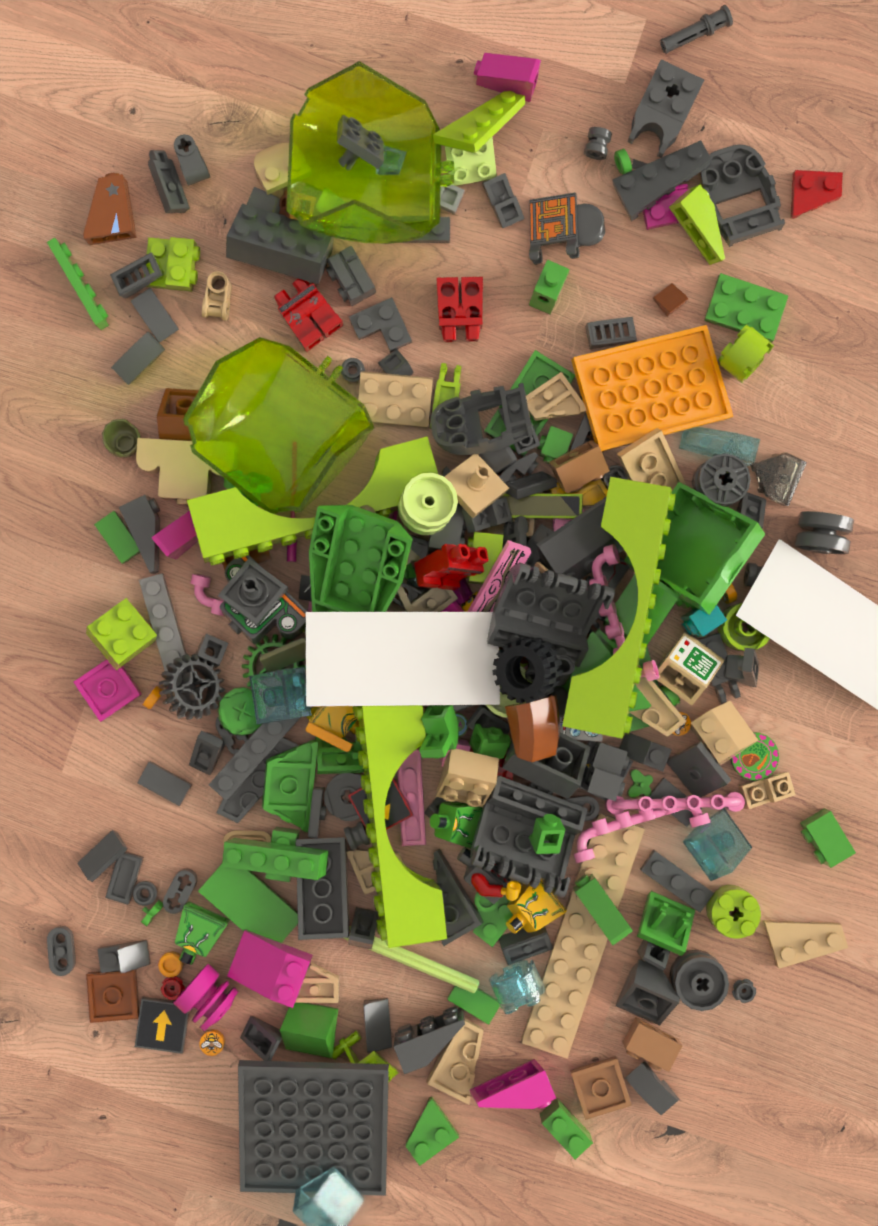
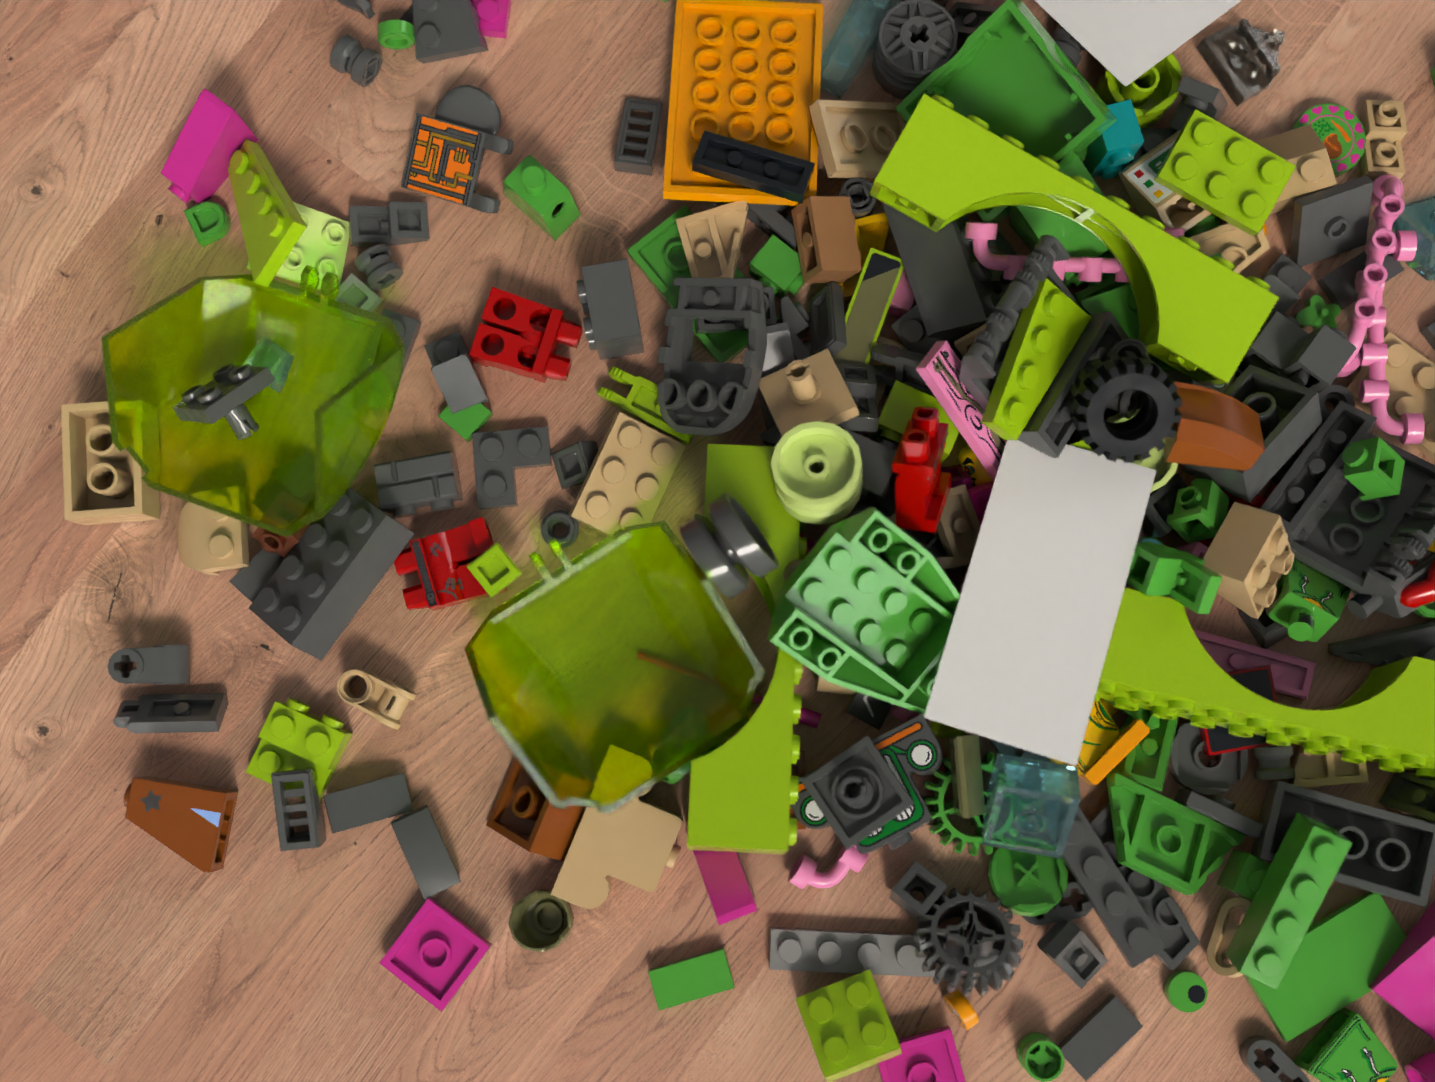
camera: 70 degrees left, 5 degrees down
(74, 275) = (260, 907): bright green plate -> none
(83, 385) = (435, 953): none -> dark pink plate
(137, 751) = (1046, 1062): none -> bright green wheel
(143, 524) = (687, 931): dark grey slope -> none
(207, 825) = (1185, 991): none -> bright green tile
(286, 85) = (98, 478): none -> tan brick
(312, 338) = (494, 570): none -> lime tile
(365, 465) = (728, 546): none -> dark grey wheel
(402, 289) = (466, 421): none -> bright green tile
(424, 274) = (455, 372): none -> dark grey slope
(467, 91) = (208, 222): none -> bright green tile
(473, 204) = (378, 267): none -> dark grey wheel
(492, 353) = (612, 308): none -> dark grey brick
(541, 609) = (1033, 359): none -> lime wing
(605, 405) = (753, 166): none -> black plate
(670, 299) = (620, 36): dark orange slope -> none
(701, 692) = (1224, 173): none -> lime plate
(789, 688) = (1243, 58): none -> clear smoke slope

